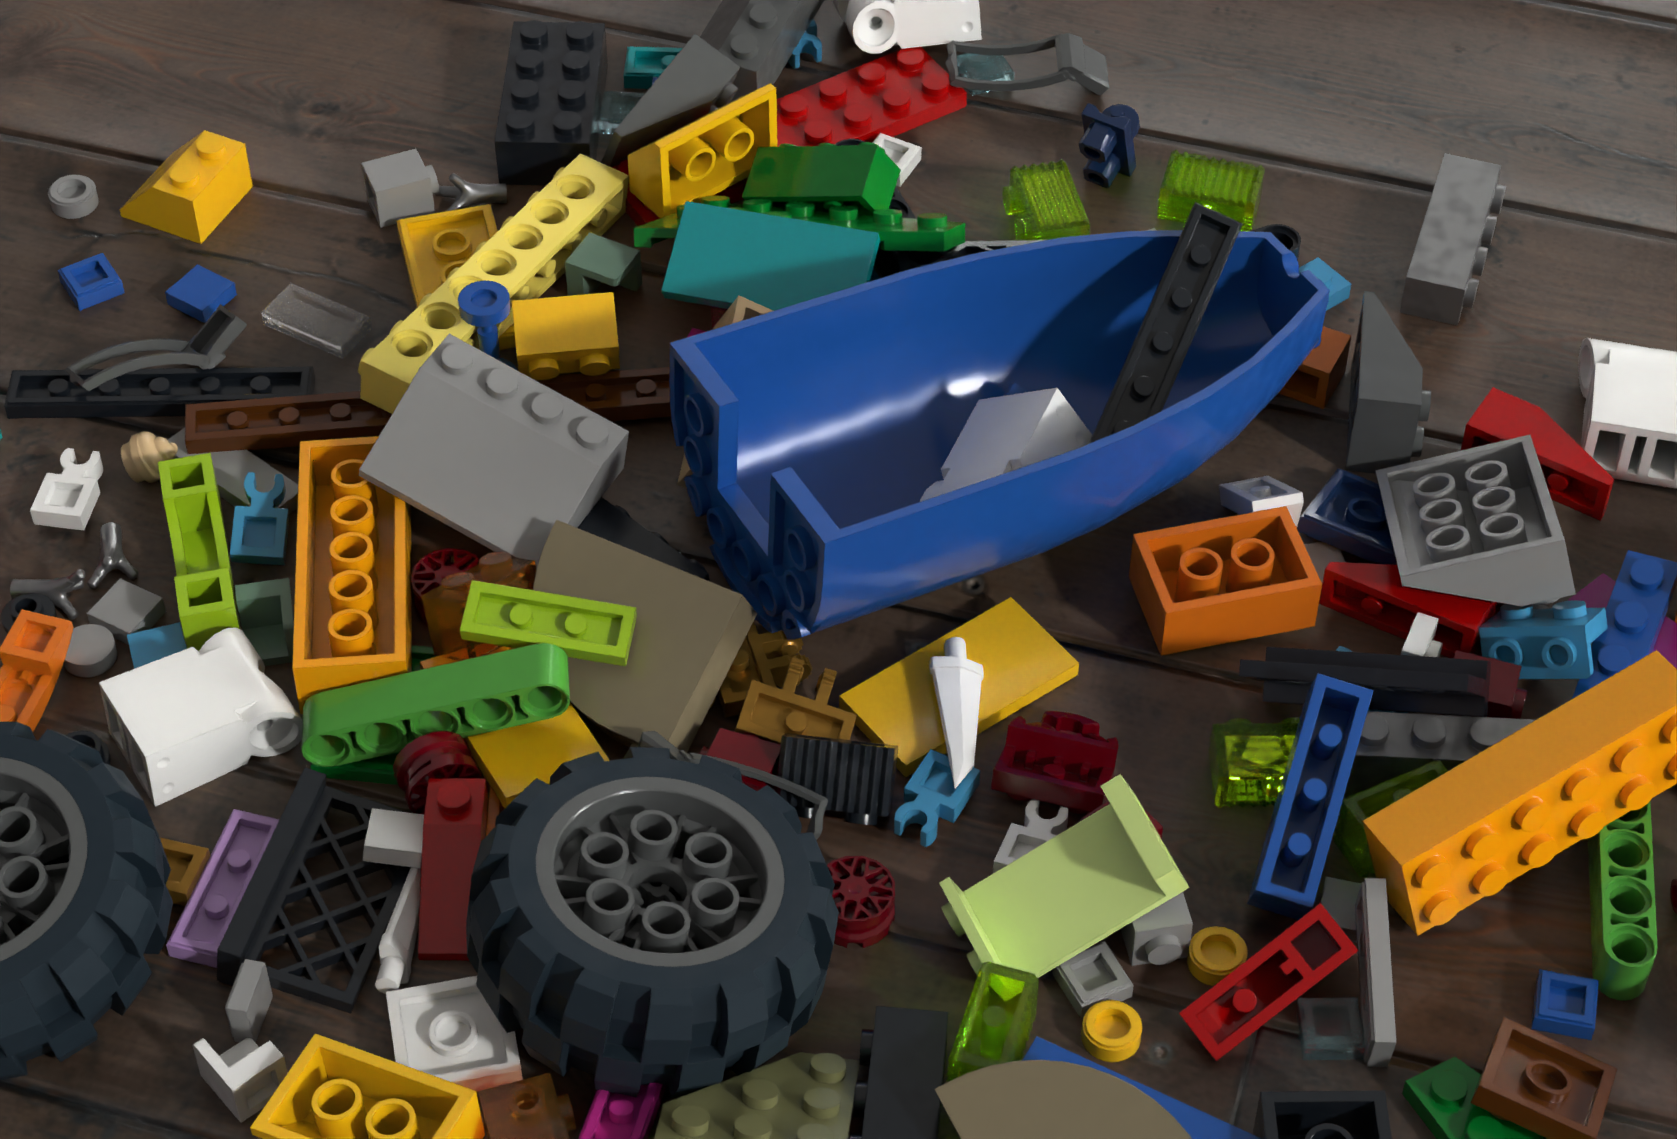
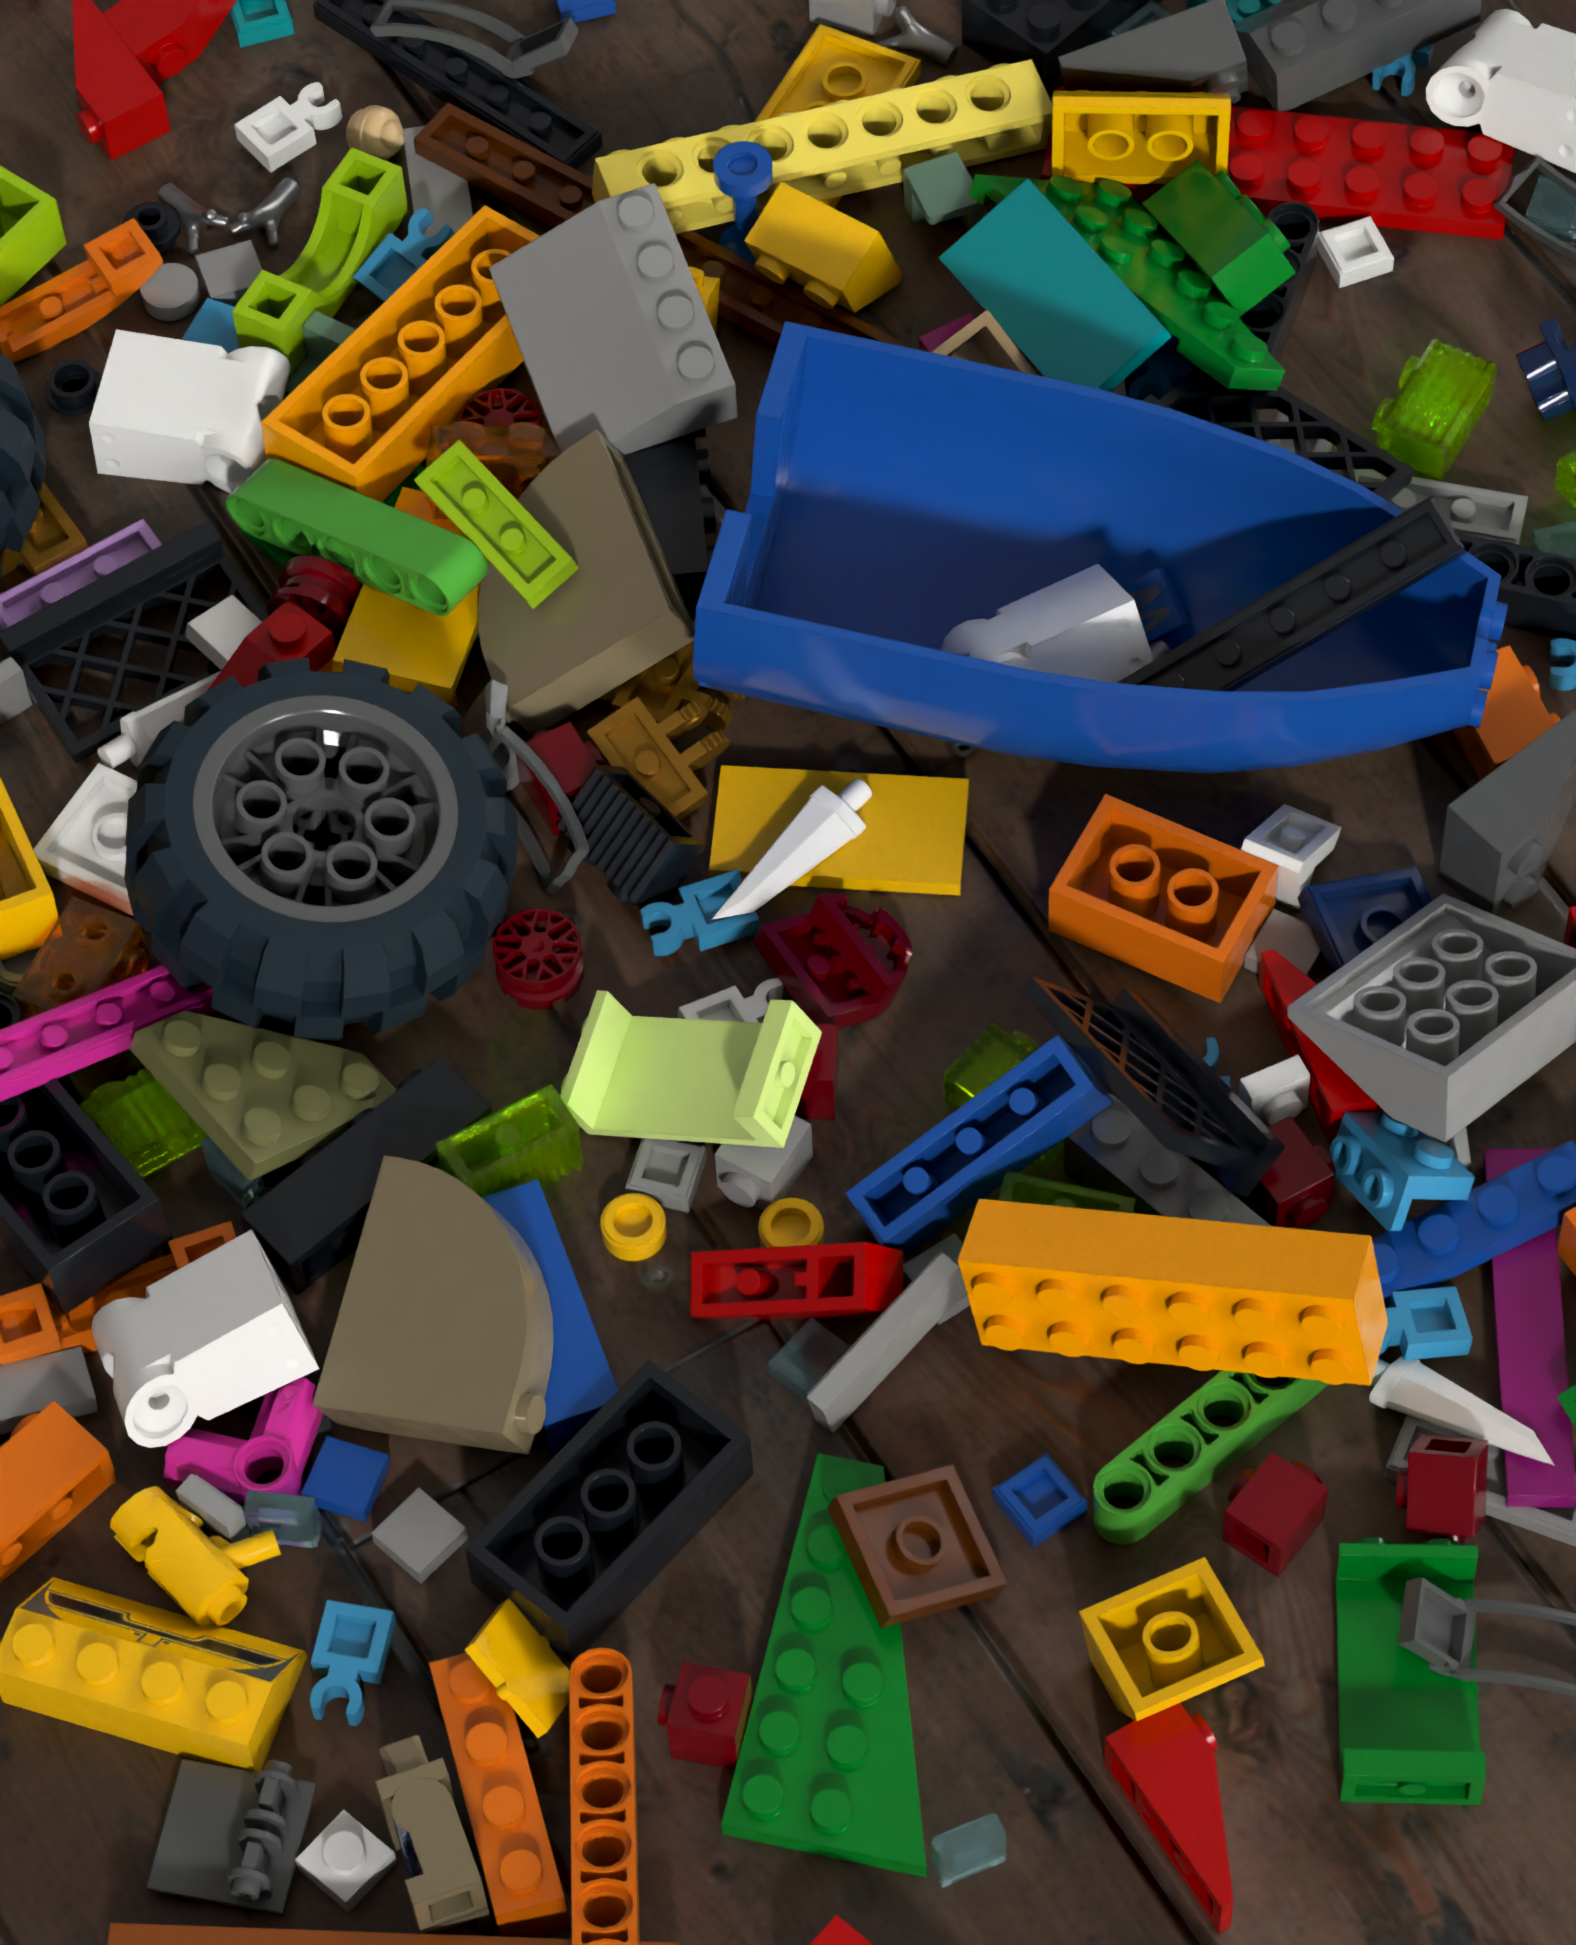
camera: 45 degrees right, 10 degrees up
(316, 320) = (655, 86): clear tile -> none

